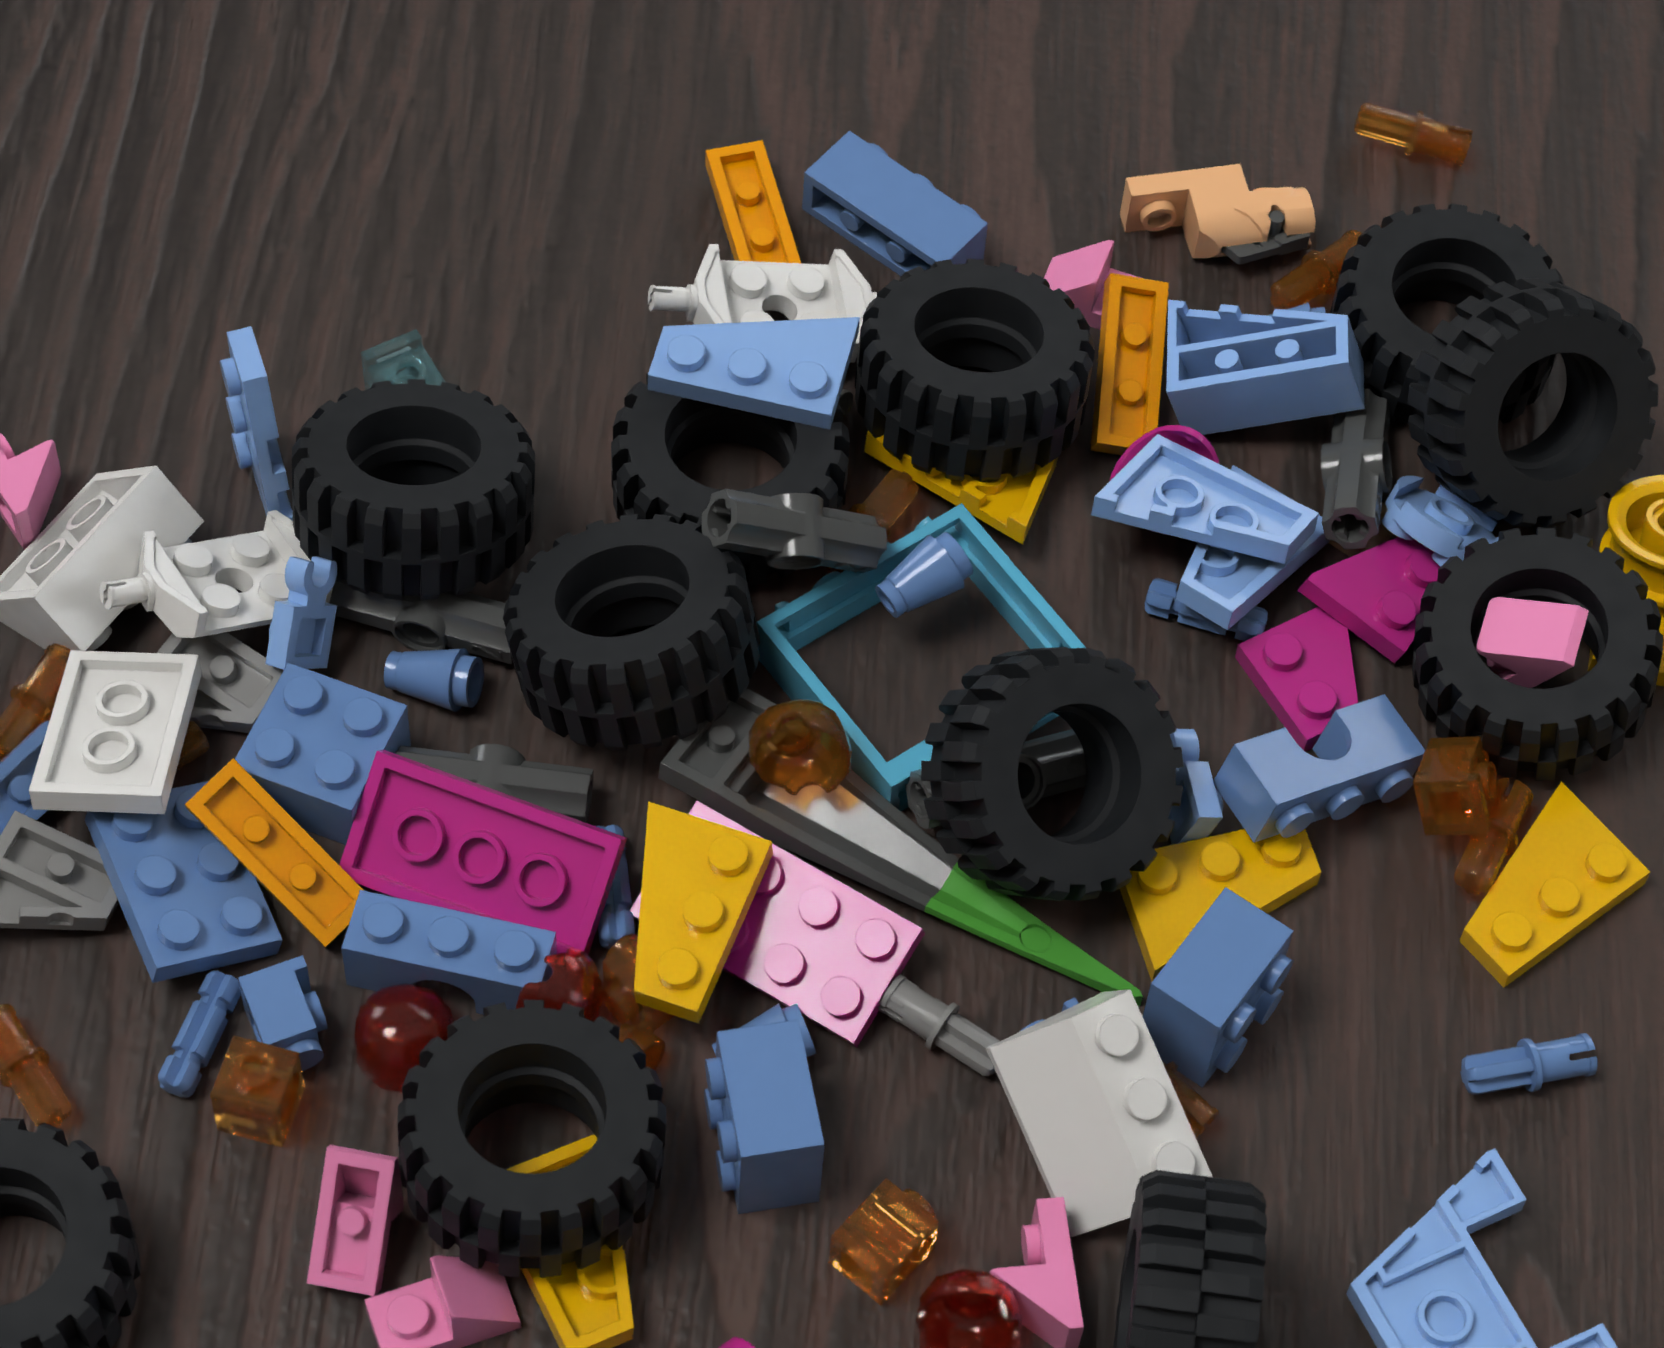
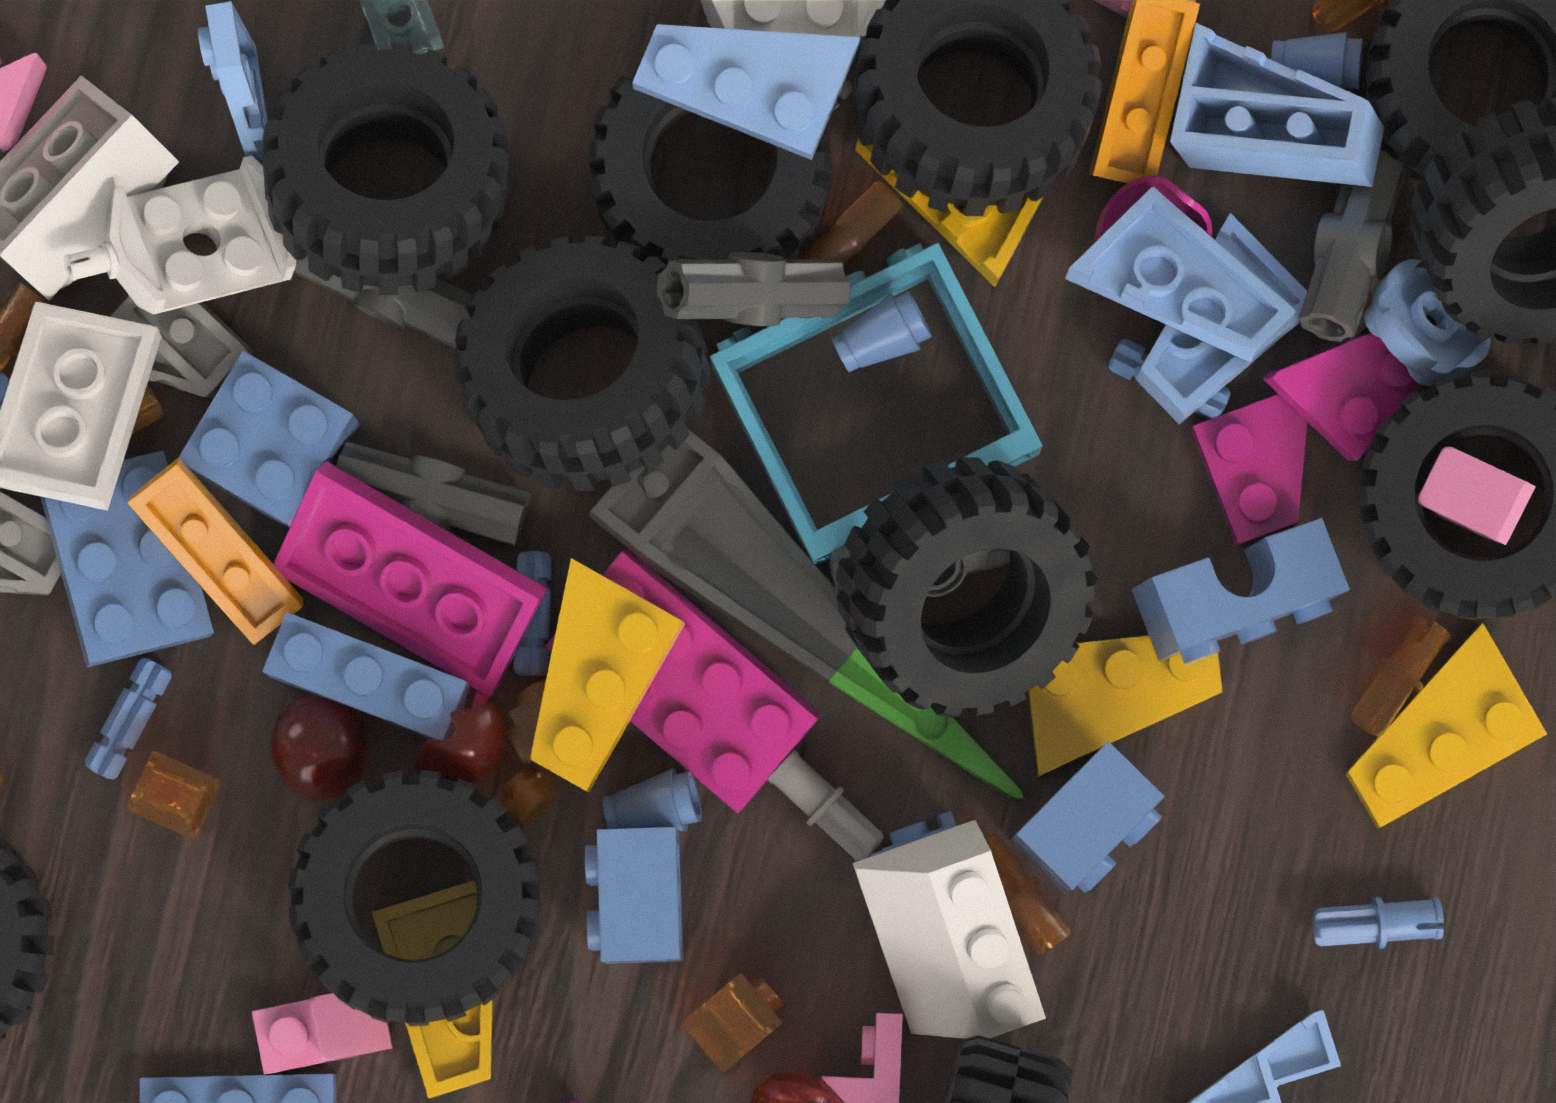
camera: 15 degrees right, 25 degrees up
(285, 1009) = (206, 719): medium blue brick -> none
(304, 623) = (264, 306): light blue plate -> none
(354, 1219) = (247, 944): bright pink slope -> none
(436, 676) = (391, 362): medium blue cone -> none
(800, 746) = (727, 510): clear orange hair -> none
(1200, 801) = (1115, 604): light blue plate -> none
(1455, 787) = (1370, 629): clear orange brick -> none

